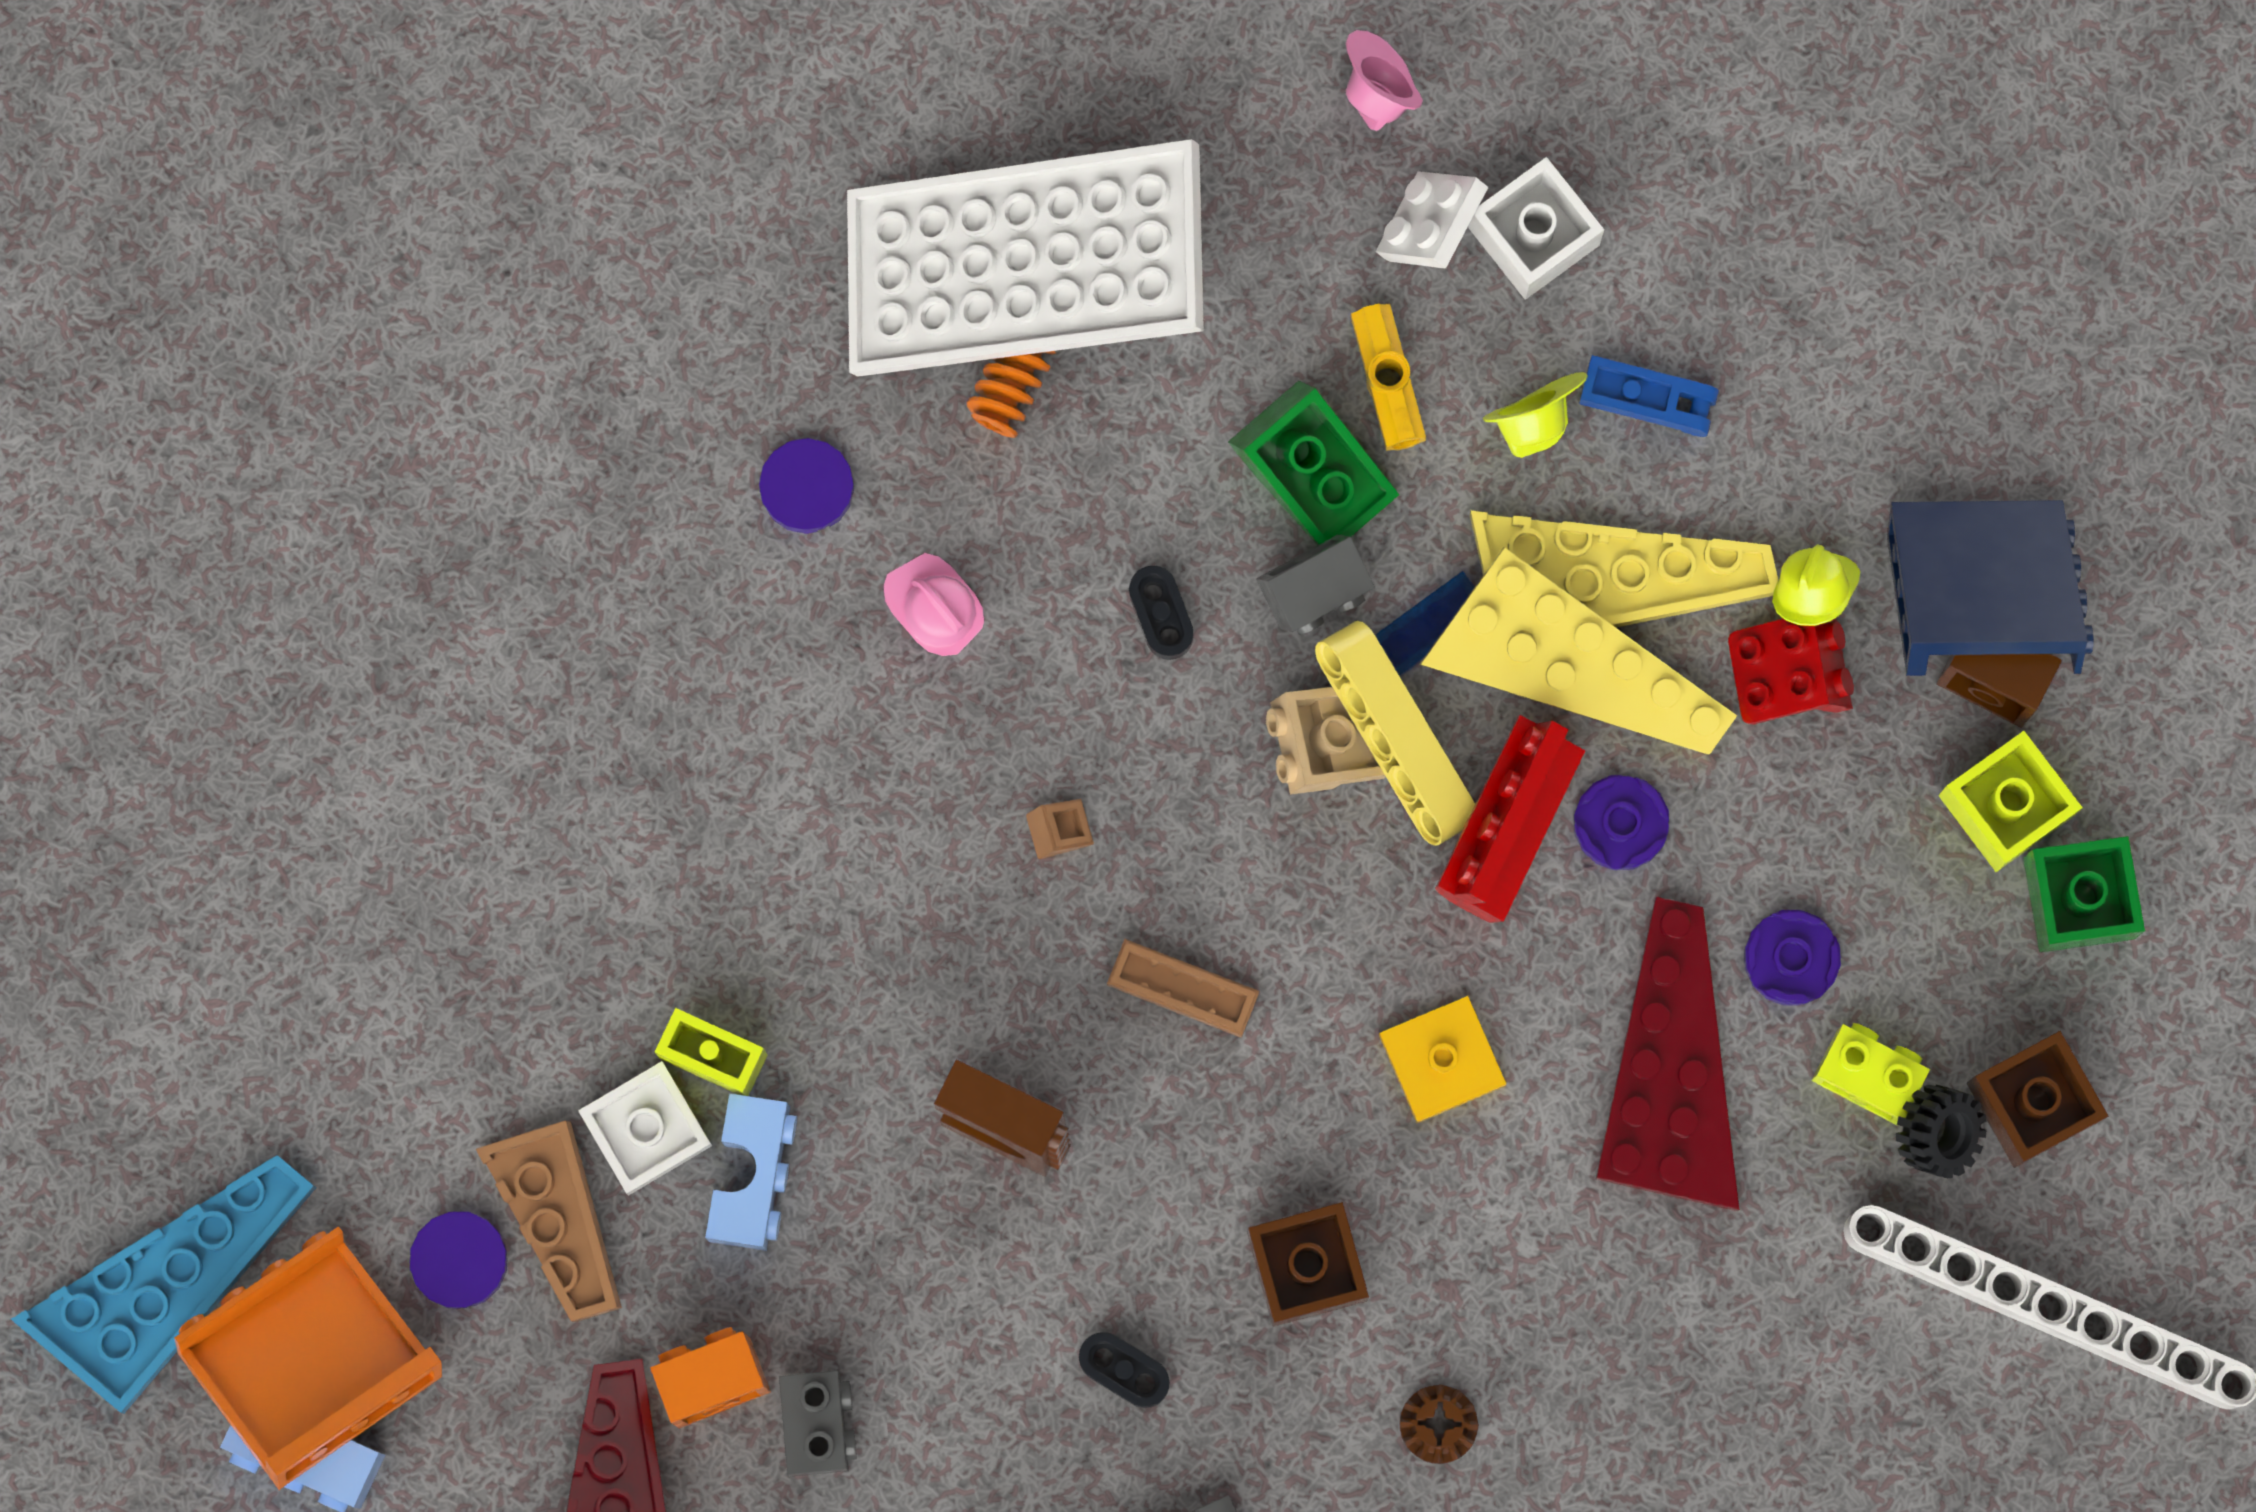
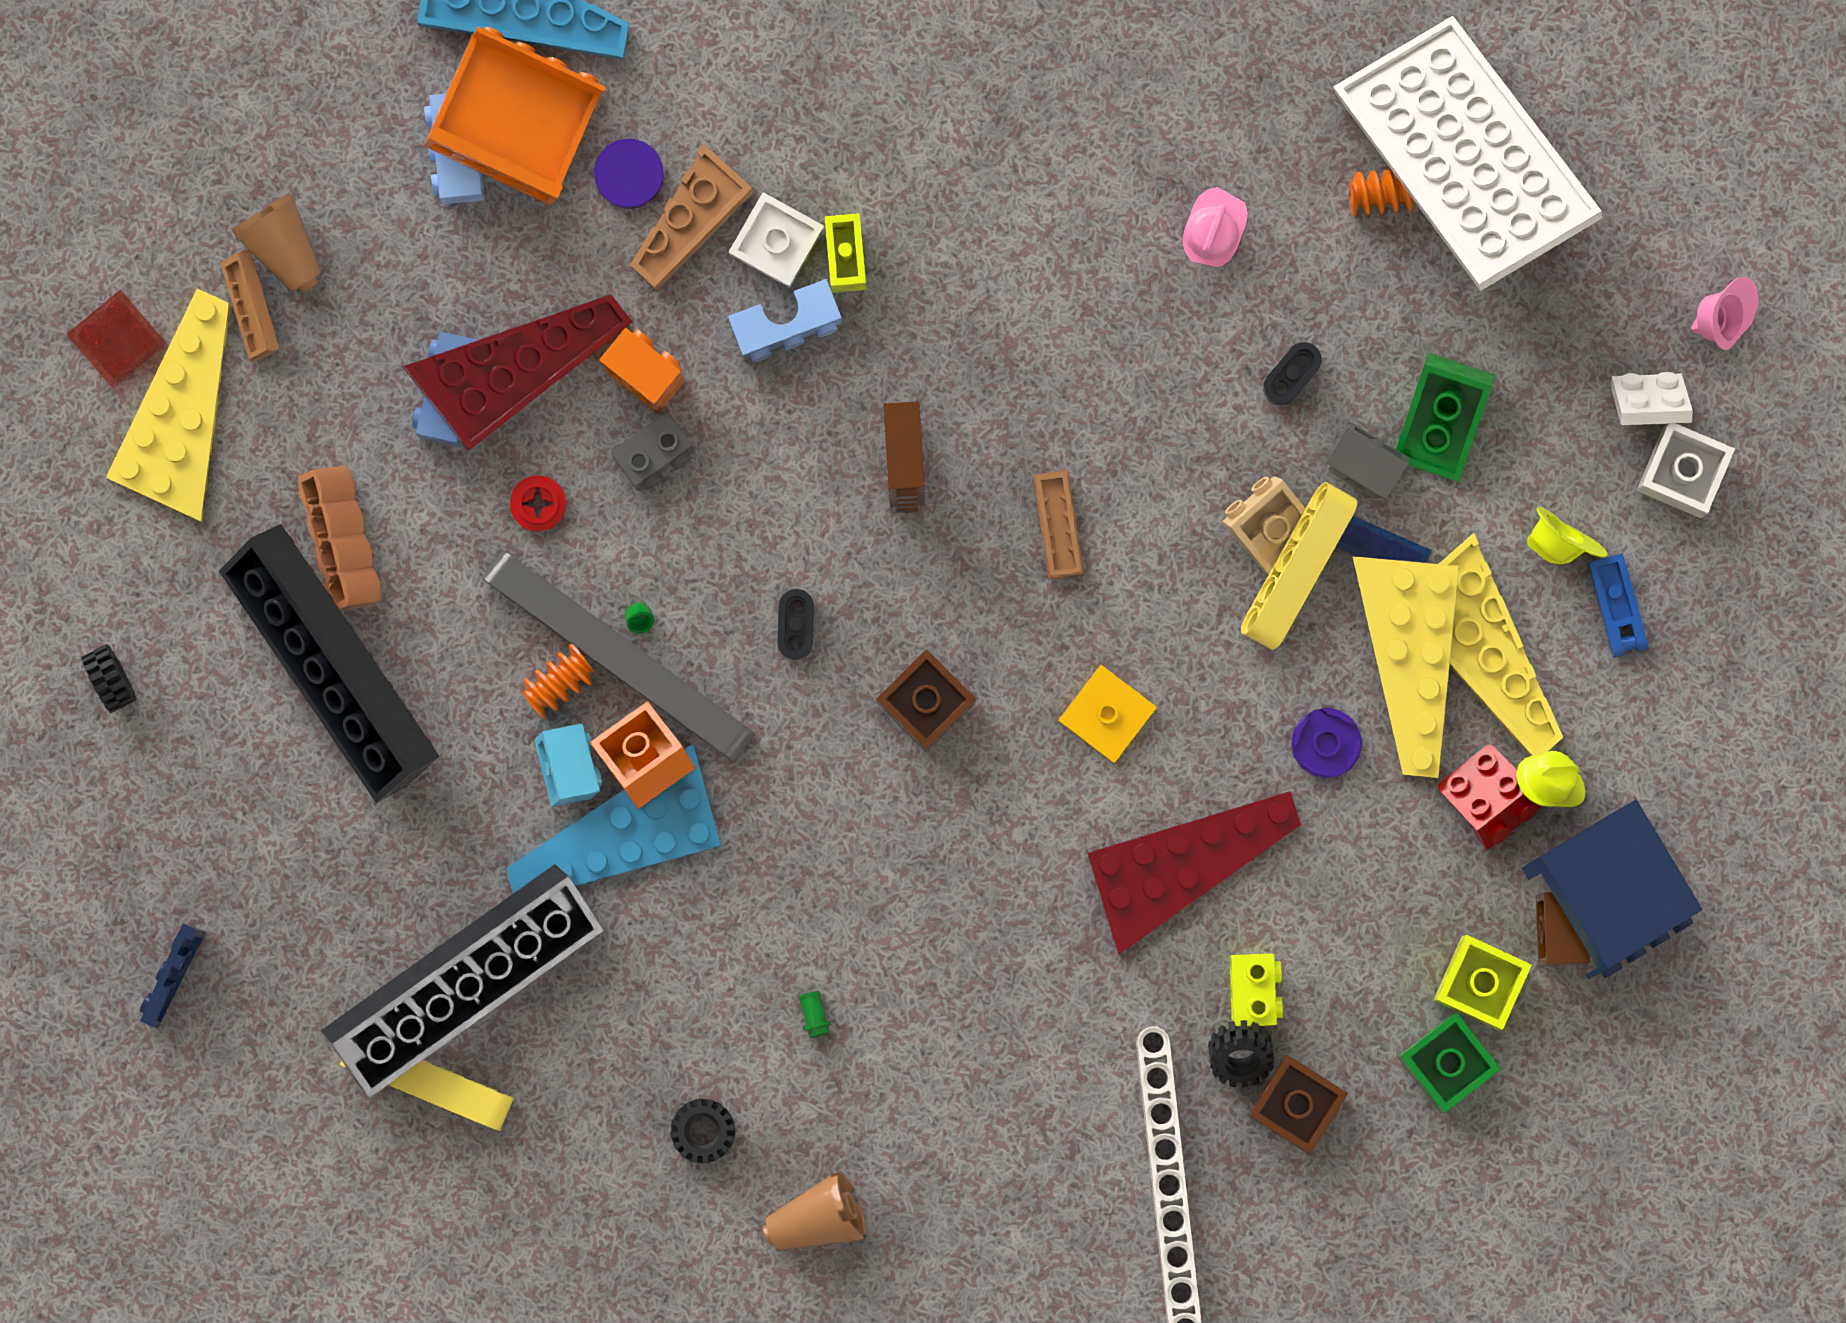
camera: 60 degrees right, 5 degrees up
(806, 485) = (1244, 102): dark purple tile -> none
(1059, 828) = (1116, 389): medium nougat slope -> none
(1381, 350) = (1546, 415): yellow piece -> none
(1421, 1439) = (869, 856): reddish brown gear -> none
(1510, 819) = (1284, 669): red brick -> none
(1780, 967) = (1296, 910): dark purple tile -> none

